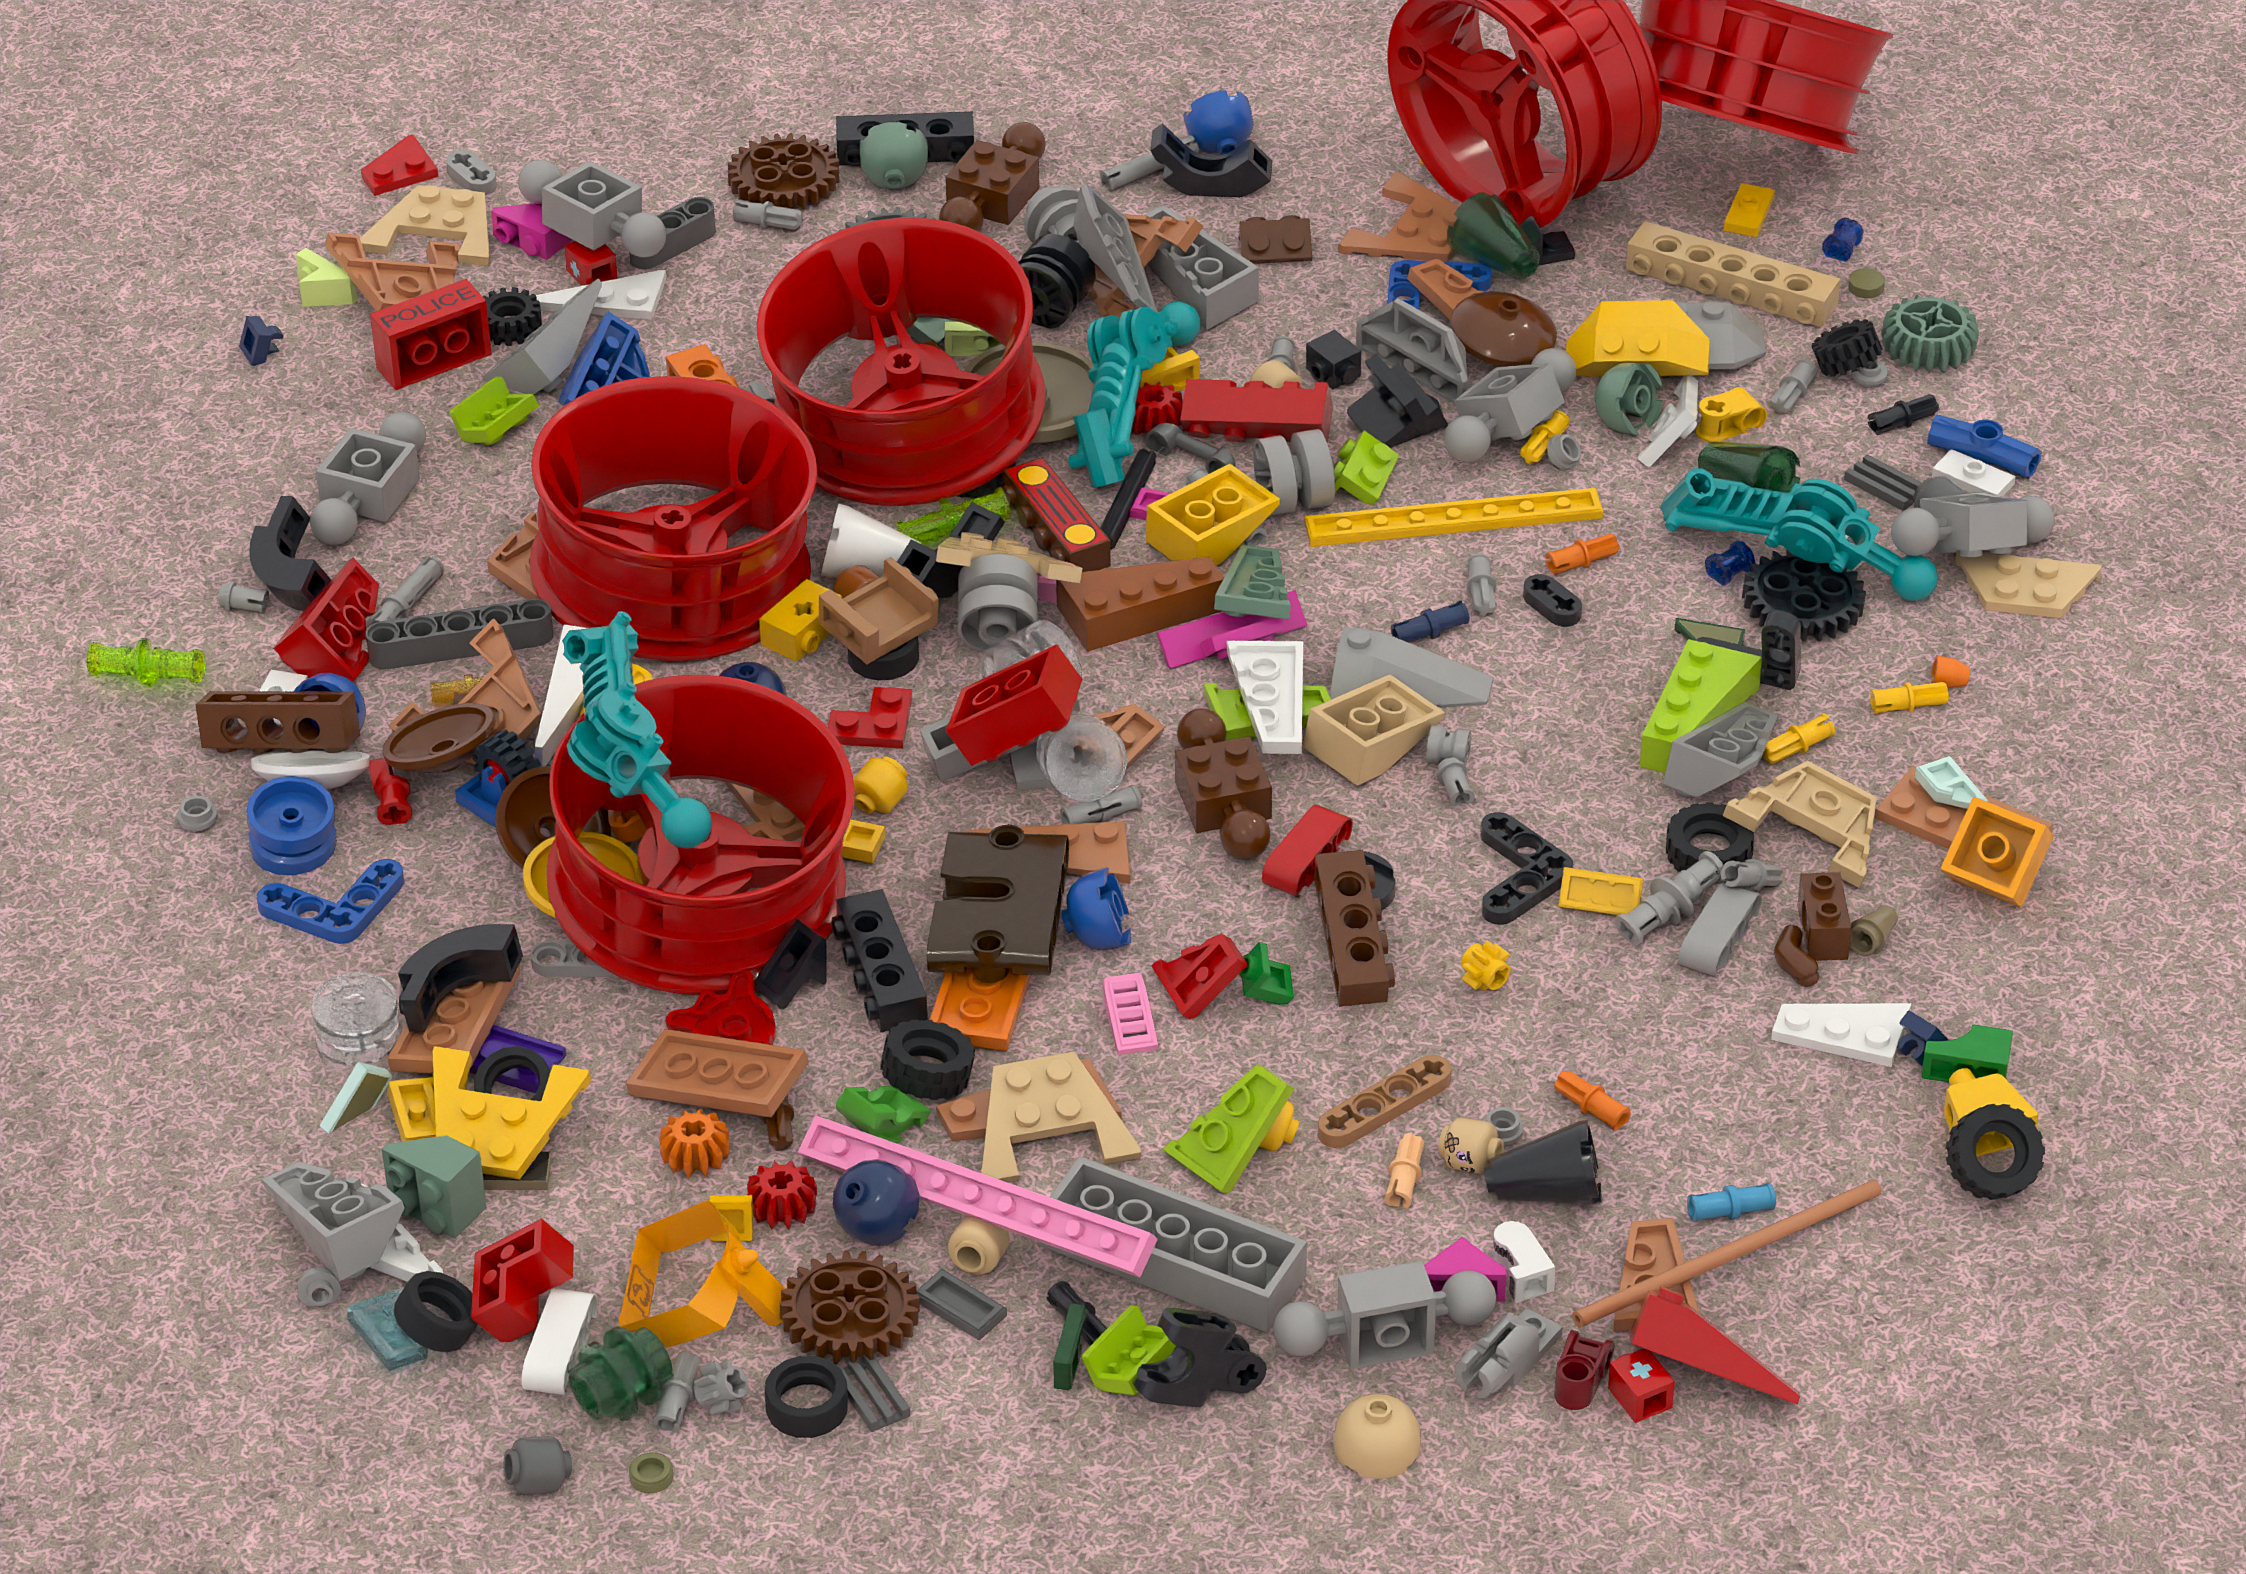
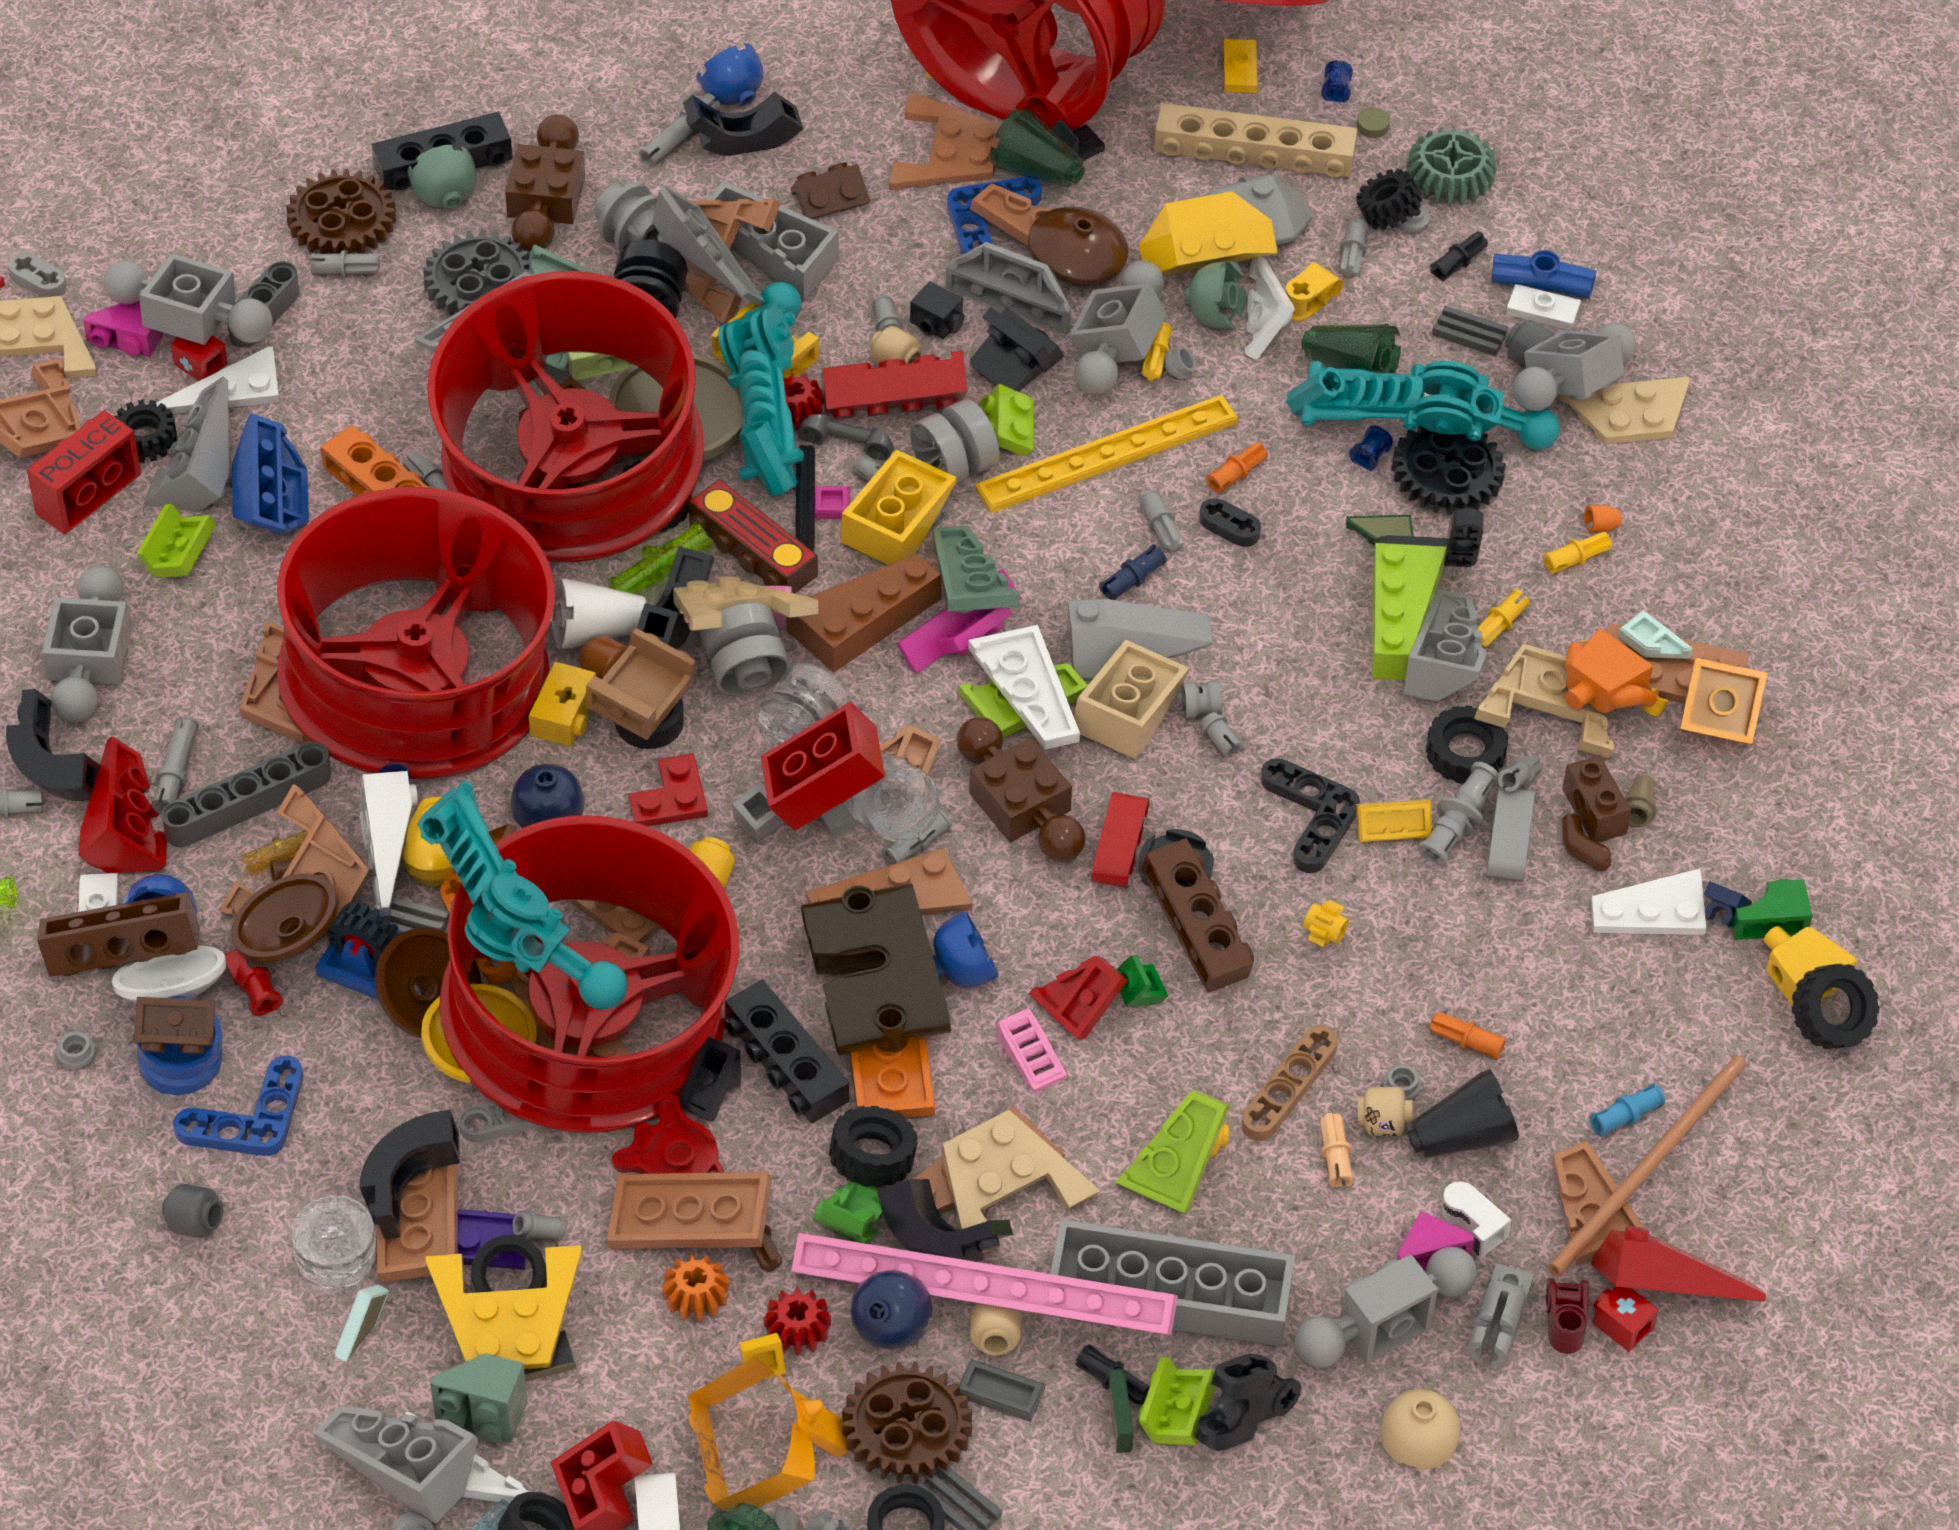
camera: 20 degrees left, 10 degrees up
(239, 968) = (192, 1210): none -> dark grey head
(285, 794) = (174, 1023): none -> reddish brown bracket
(414, 1107) = (424, 1319): yellow wing -> none
(562, 1053) = (529, 1226): none -> light grey pin
(939, 1129) = (920, 1228): none -> black arch
(1884, 804) = (1609, 676): none -> orange torso

